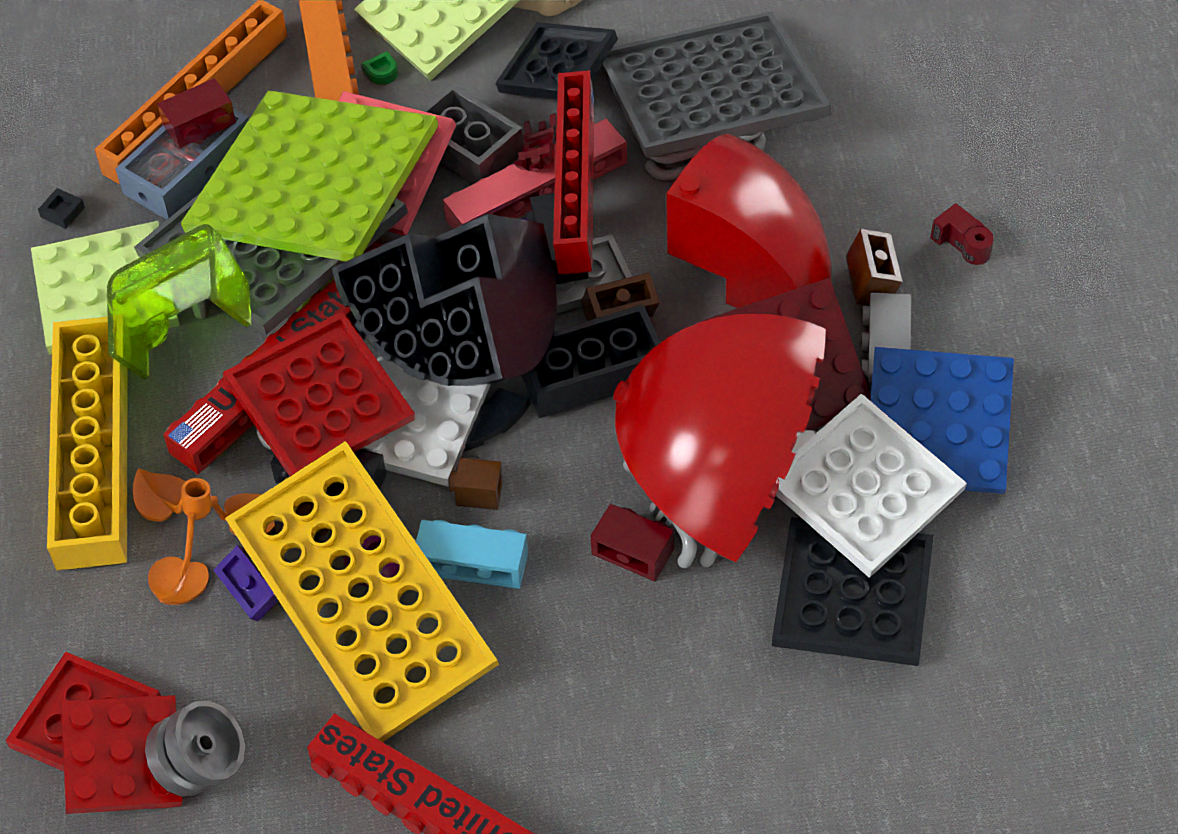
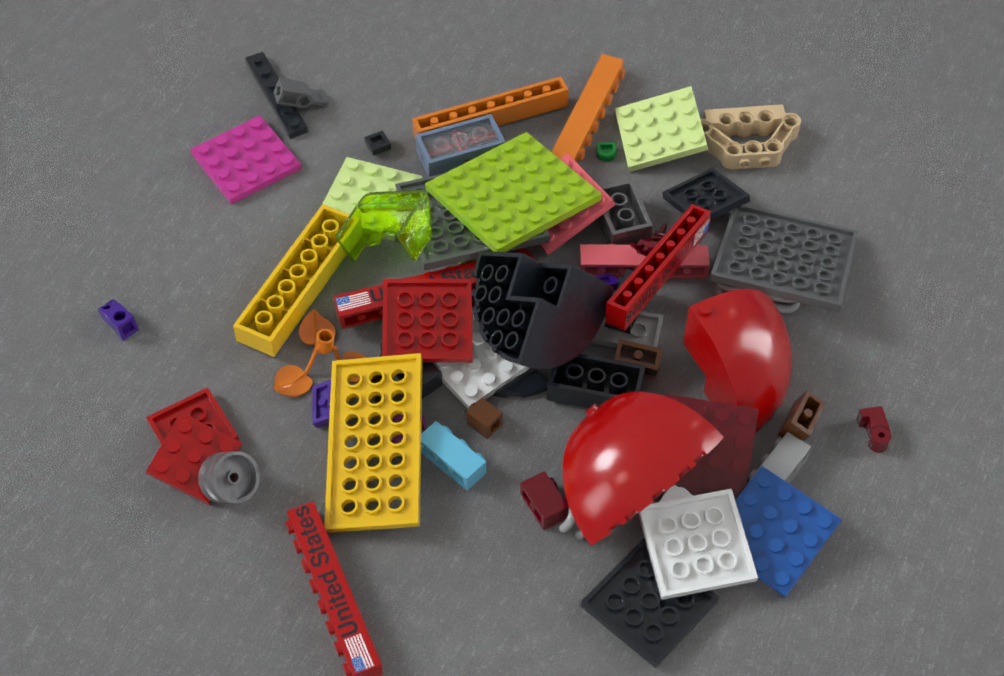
camera: 30 degrees right, 0 degrees up
(197, 113) = (476, 125): dark red brick -> none

